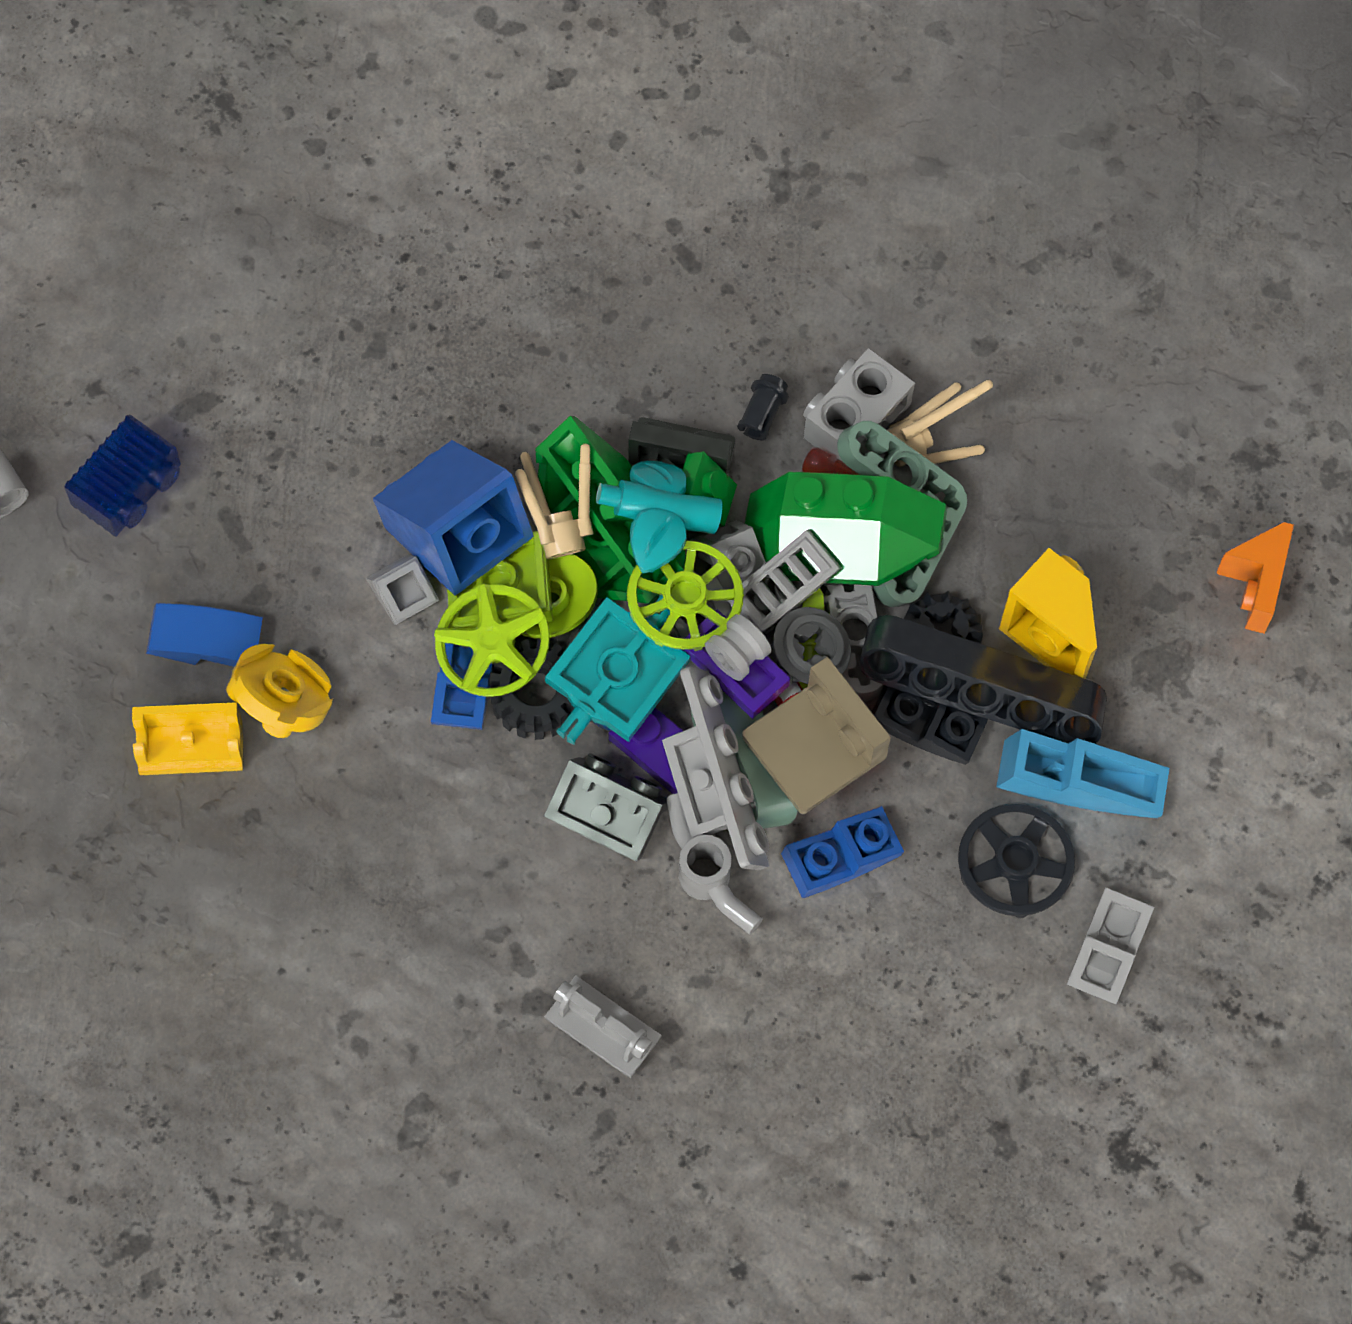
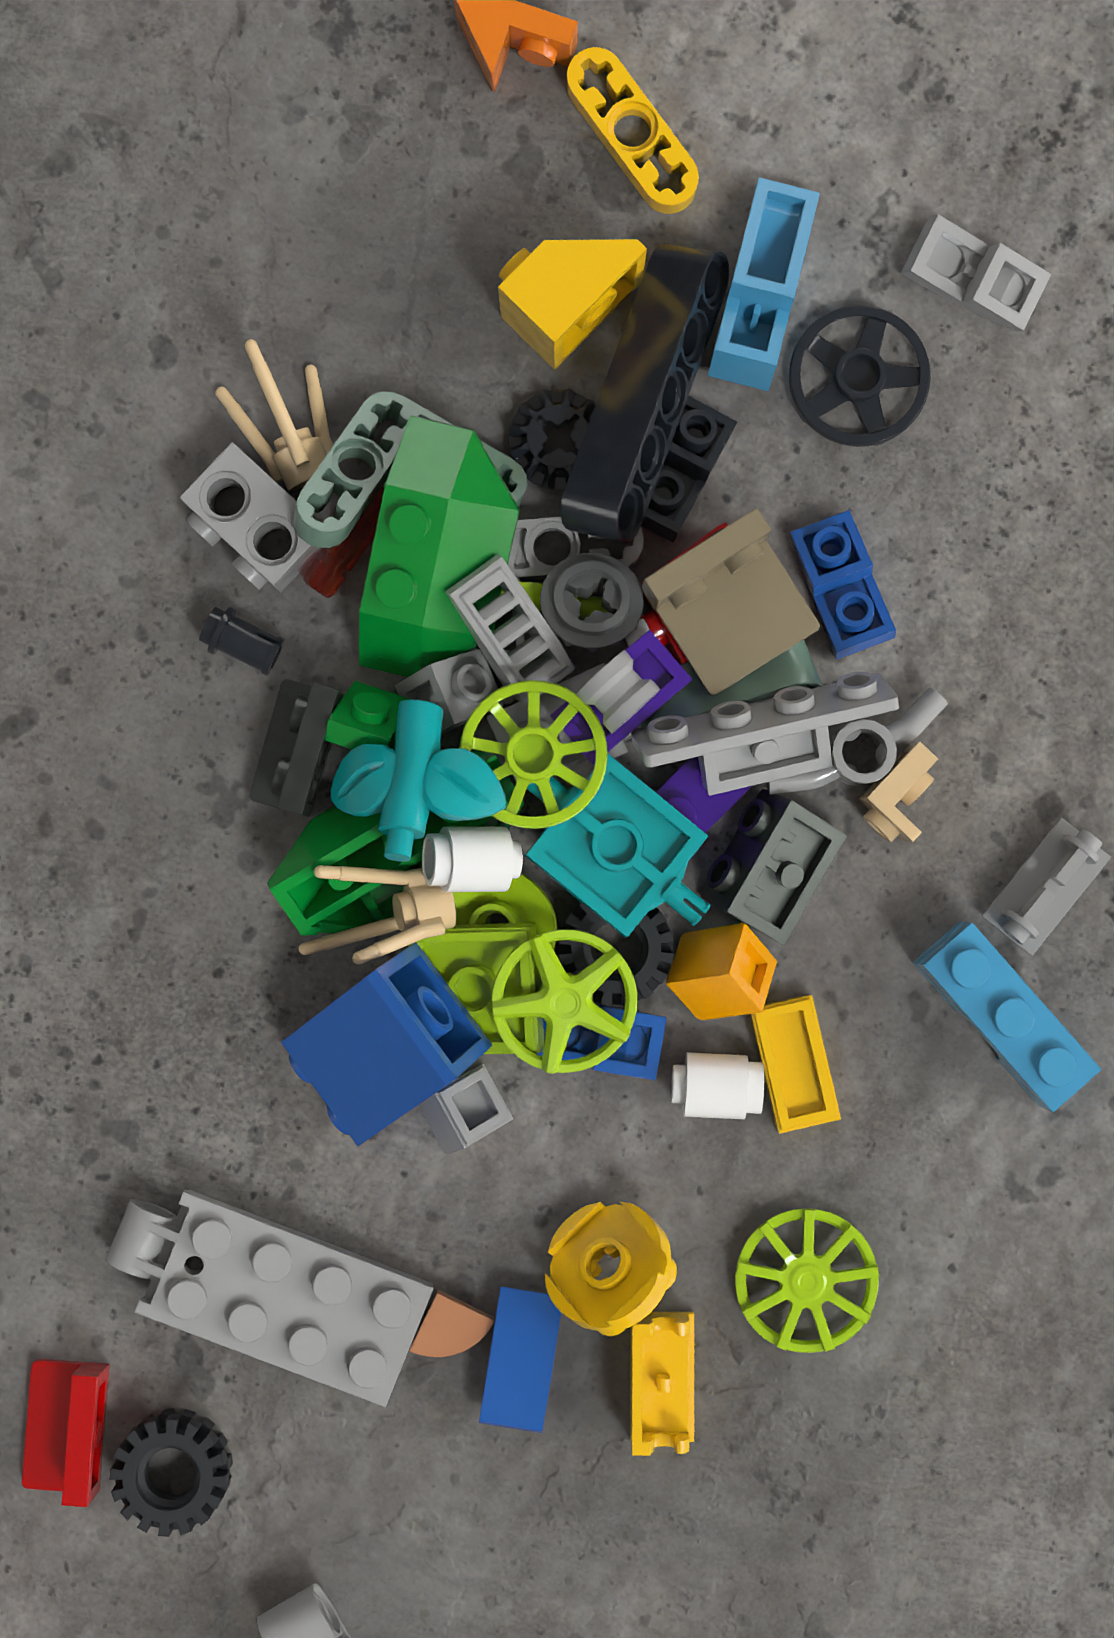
camera: 80 degrees left, 20 degrees up
(109, 363) = (150, 1504): none -> black tyre
(123, 476) = (300, 1462): clear blue brick -> none
(148, 317) = (66, 1429): none -> red panel
(229, 582) = (450, 1327): none -> nougat tile
(254, 455) = (273, 1292): none -> light grey hinge
(270, 850) = (807, 1281): none -> lime wheel
(427, 770) = (718, 1086): none -> white brick
(447, 835) = (795, 1064): none -> yellow tile
(472, 1005) = (1008, 1015): none -> dark azure arch
(520, 770) = (721, 972): none -> light orange panel
(600, 560) = (471, 859): none -> white brick
(683, 899) = (904, 782): none -> tan bracket
(1232, 662) = (592, 103): none -> yellow beam

